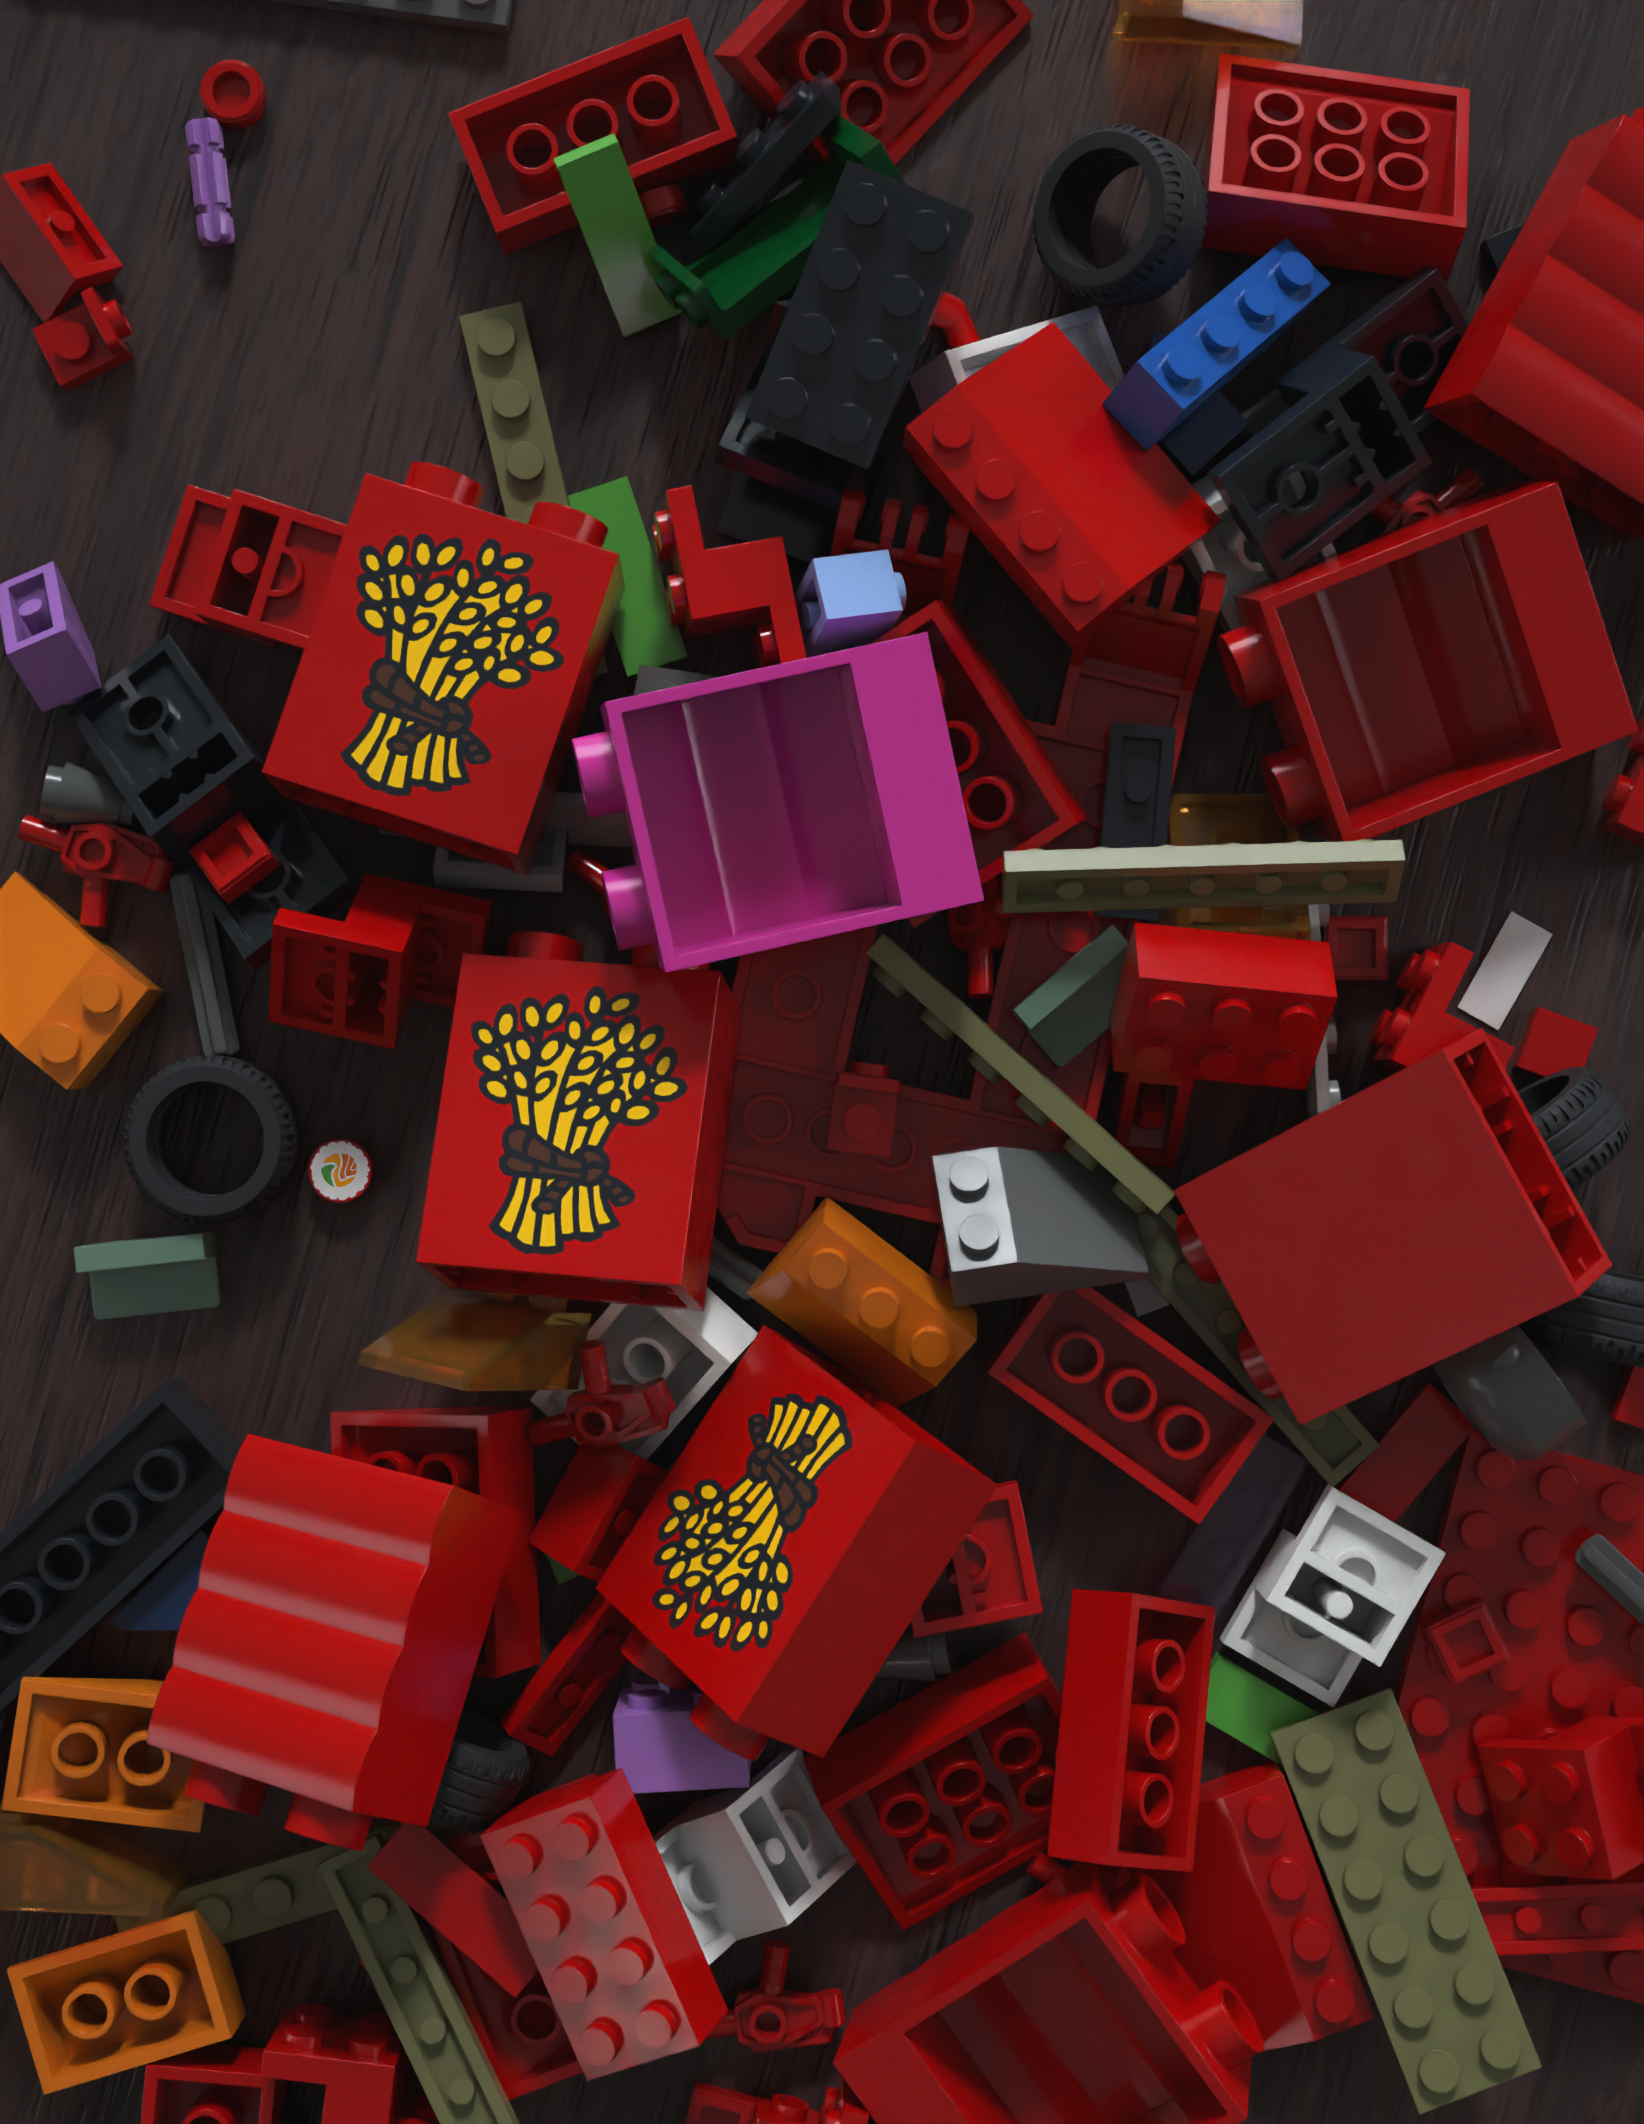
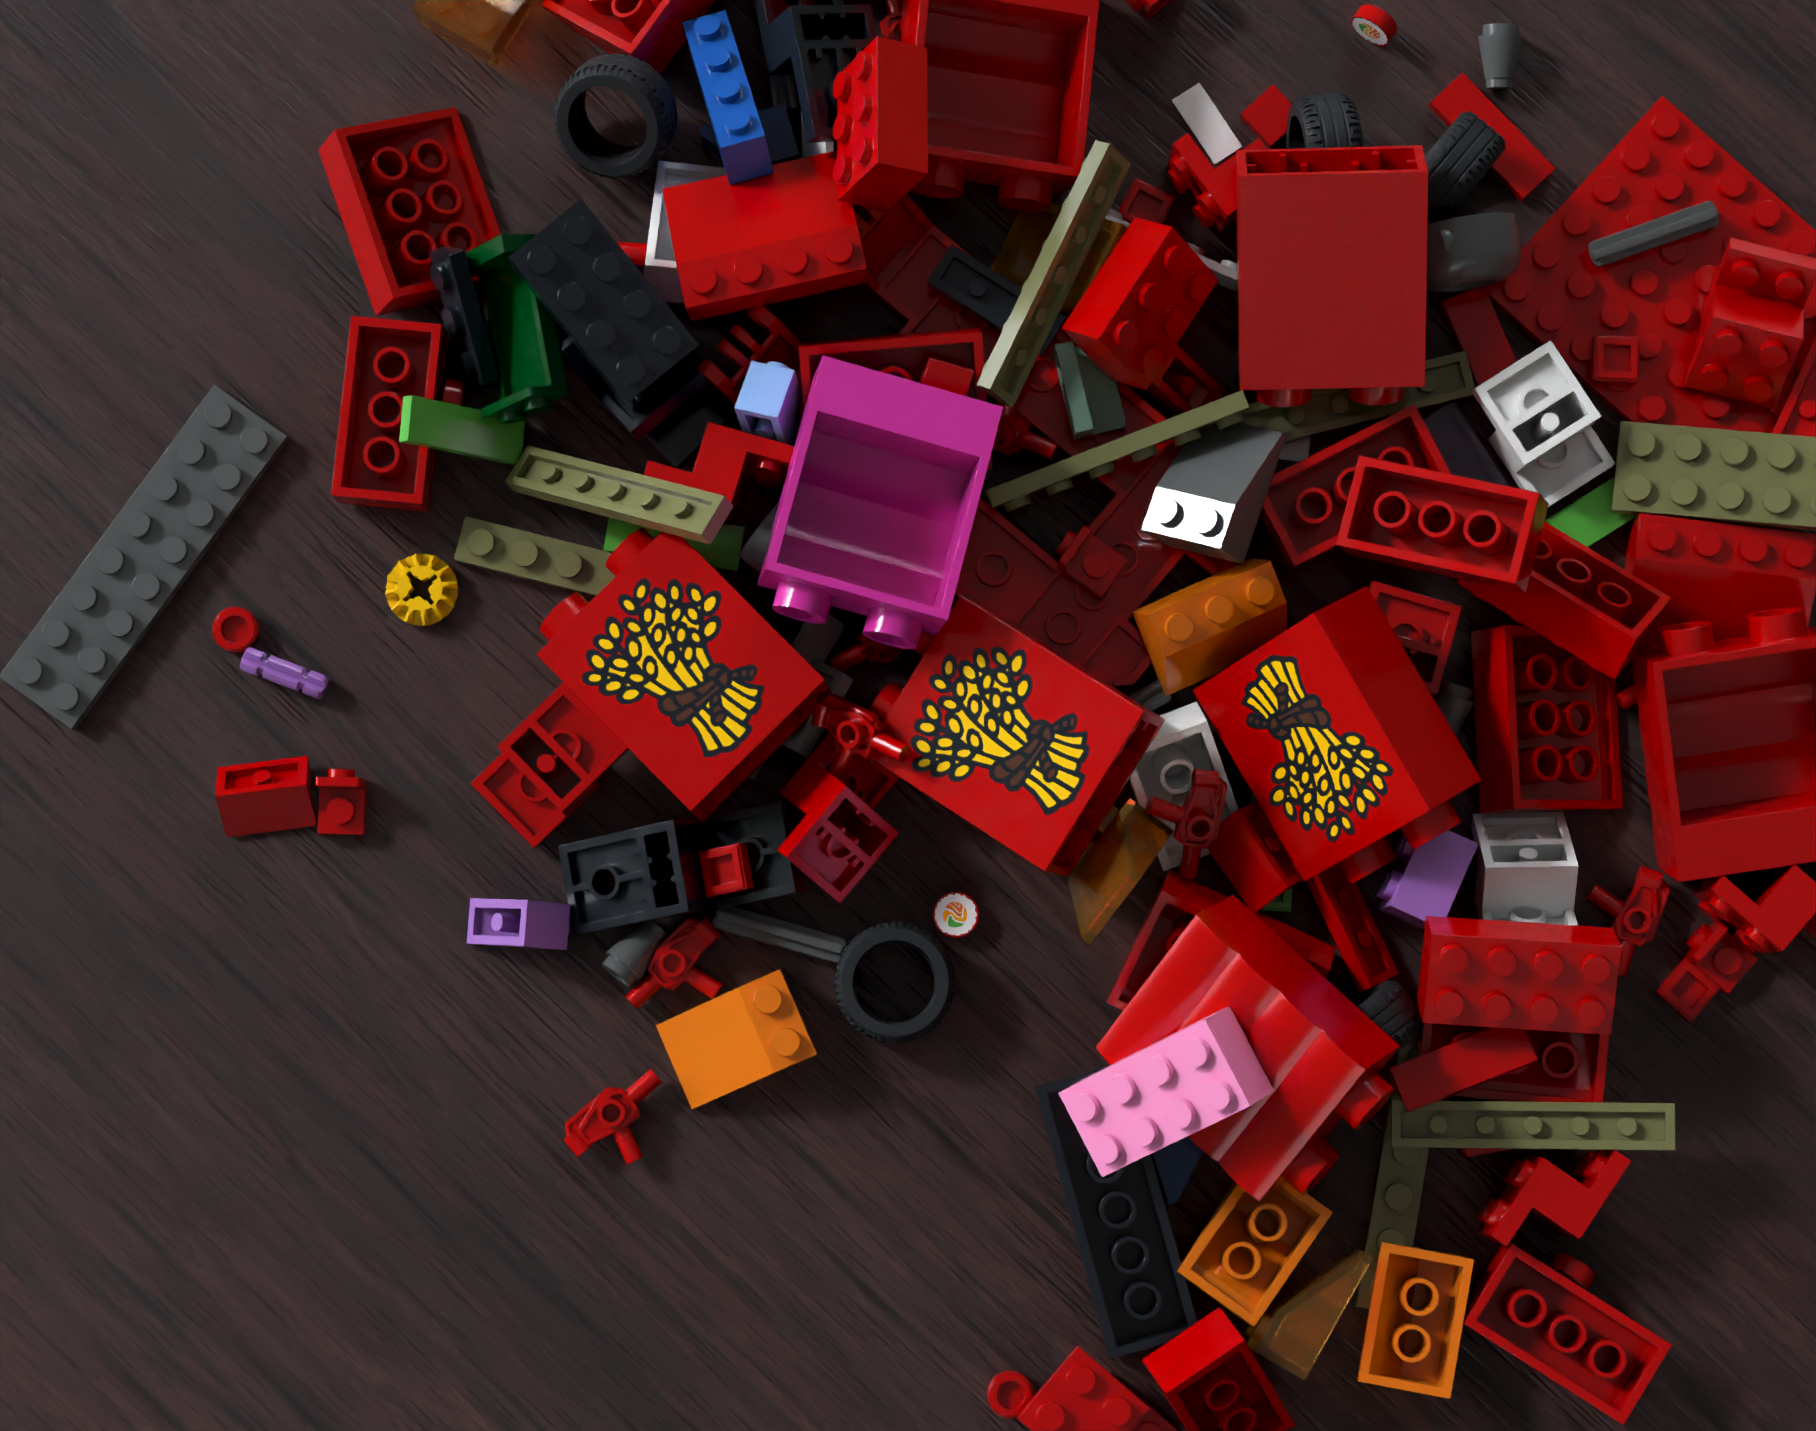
camera: 60 degrees left, 5 degrees down
(152, 1274) = (960, 1070): sand green panel -> none
(218, 1560) = (1166, 1091): none -> bright pink brick
(412, 324) = (443, 590): none -> yellow gear
(480, 929) = (857, 732): none -> red piece
(630, 476) = (619, 494): none -> olive plate
(991, 811) = (947, 376): none -> red tile
(1130, 1540) = (1442, 524): none -> red brick
(1276, 551) = (881, 124): none -> red brick

